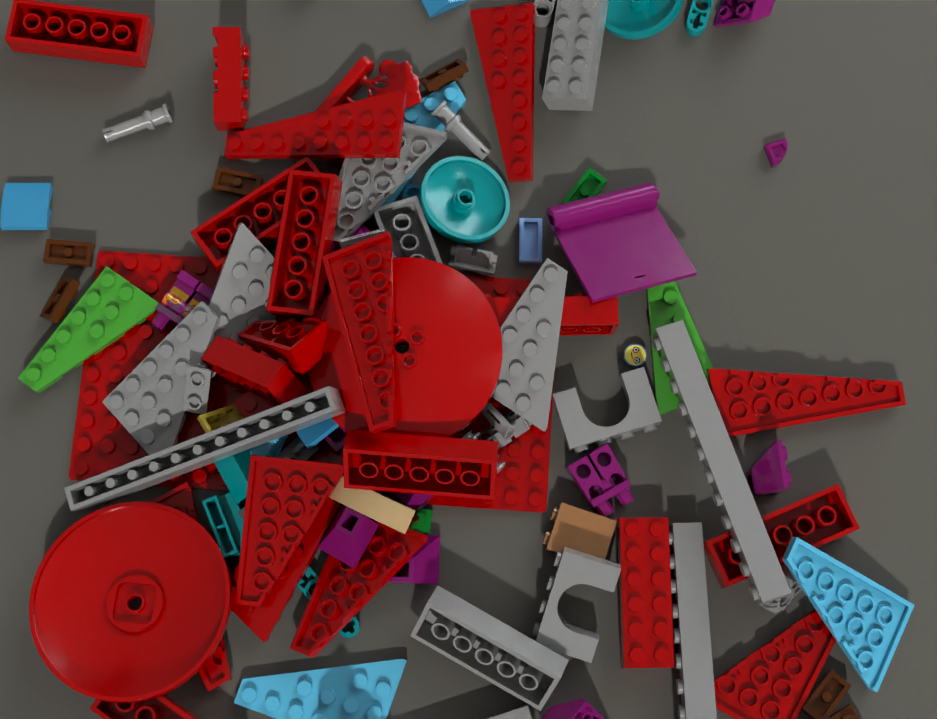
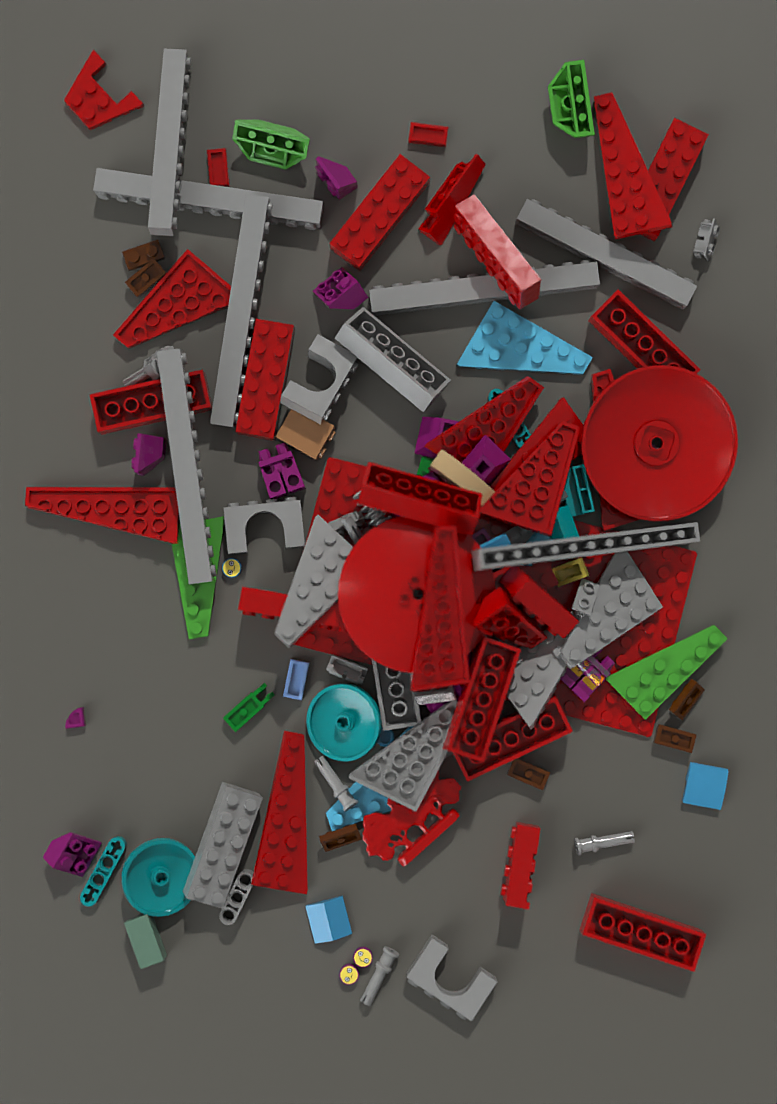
camera: 165 degrees left, 10 degrees up
(349, 130) = (432, 796): red wing -> none
(619, 242) = (225, 659): magenta door -> none
(855, 609) = (108, 336): medium azure wing -> none

